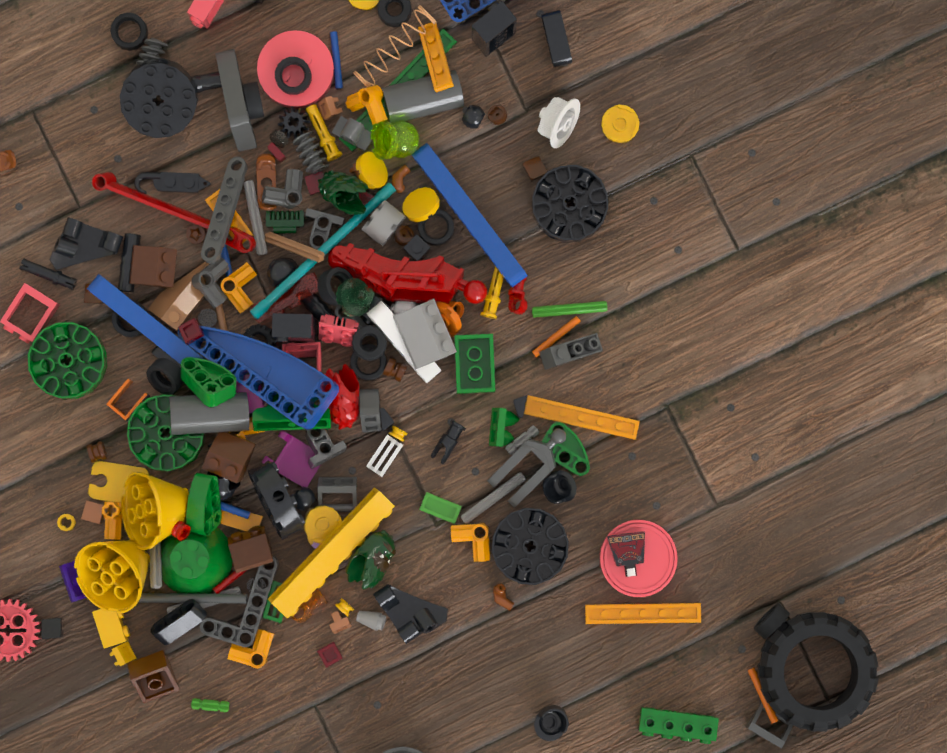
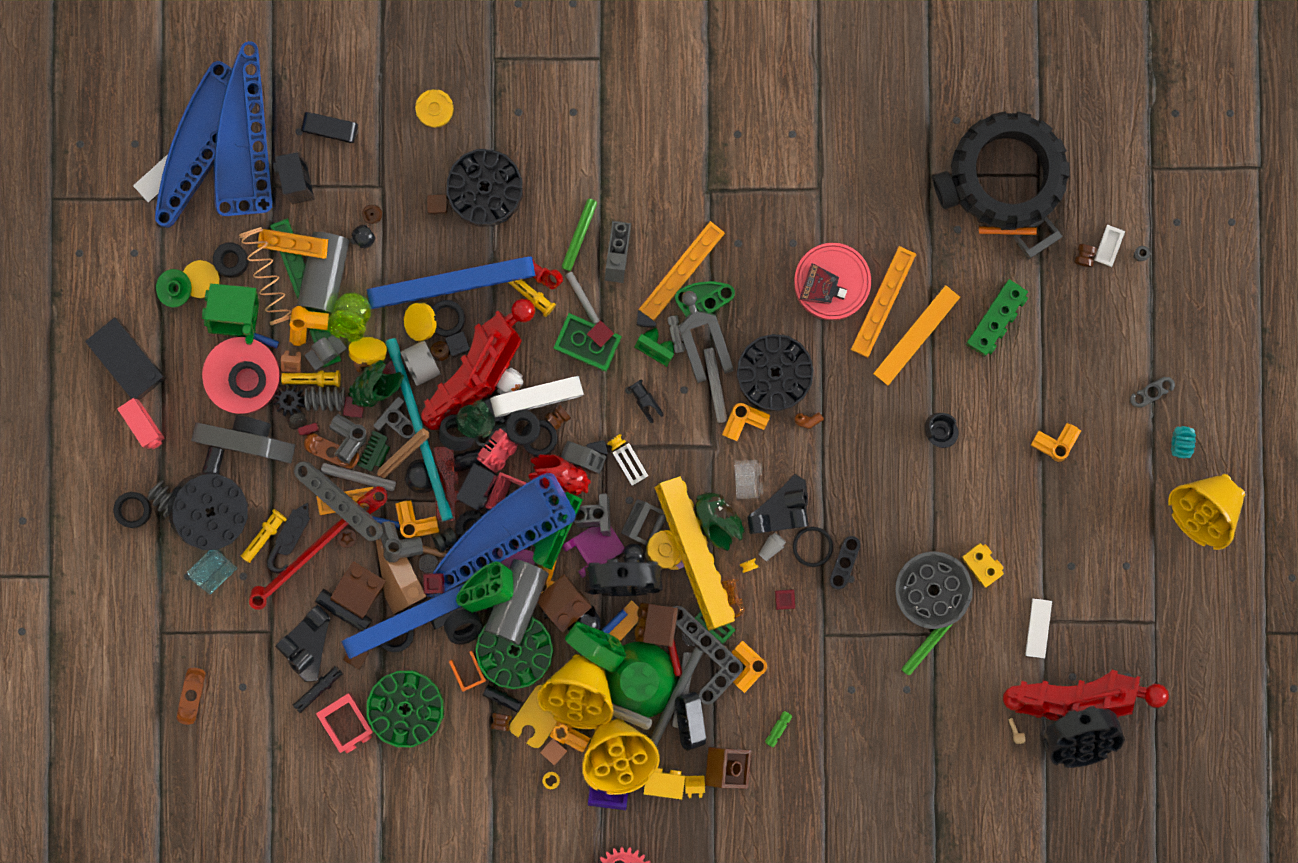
camera: 65 degrees left, 0 degrees up
(51, 628) = (640, 839): black slope -> none
(108, 128) = (211, 570): none -> clear light blue bracket
(118, 443) = (502, 698): none -> black pin
(170, 160) = (269, 528): none -> yellow pin
(181, 530) = (610, 677): red bush -> none
(235, 322) = (444, 539): none -> pearl dark grey wheel
(339, 623) = (762, 577): nougat tile -> none
(348, 32) = (231, 311): none -> green container
(380, 697) = (844, 572): none -> black beam
(397, 178) = (385, 331): dark orange arm -> none
(407, 656) = (814, 529): none -> black tyre
(421, 568) = (747, 479): none -> clear brick
(424, 334) = (539, 373): light grey slope -> none
(440, 507) = (701, 437): bright green tile -> none
(450, 317) = (533, 348): orange tile -> none
(487, 371) = (600, 333): none -> dark red tile
(514, 339) = (582, 297): none -> light grey bar
(556, 336) = (598, 258): orange bar -> none
(559, 120) = (404, 161): white piece -> none
(559, 487) = (735, 320): black helmet -> none
(627, 658) = (916, 335): none -> light orange tile

